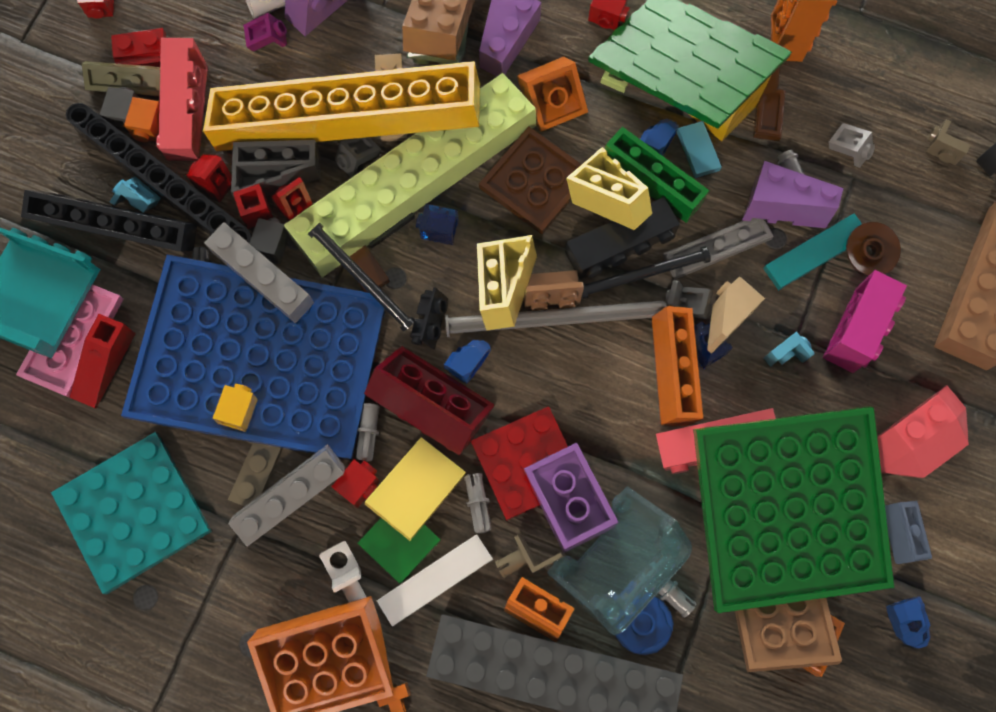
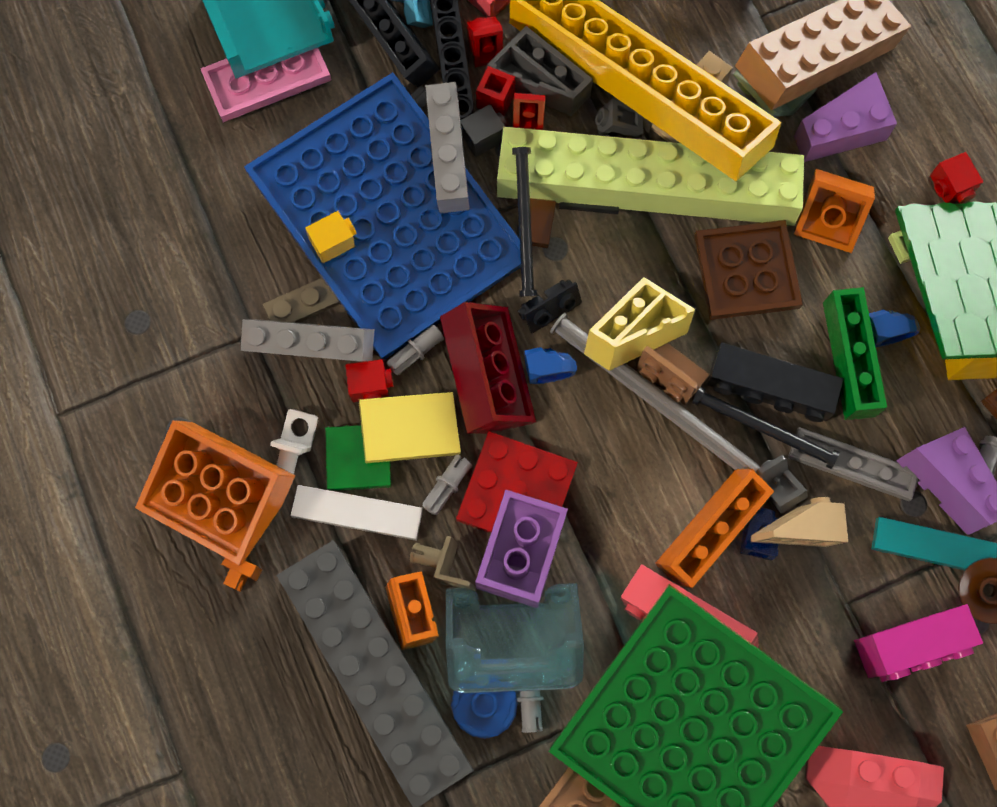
camera: 45 degrees right, 0 degrees up
(99, 359) = (270, 110): red slope -> none
(130, 513) = (186, 249): teal plate -> none
(438, 224) = (630, 235): clear blue brick -> none
(610, 191) = (798, 331): light yellow wedge -> none
(699, 149) = (918, 369): medium azure tile -> none
(792, 346) = (824, 601): medium azure bracket -> none

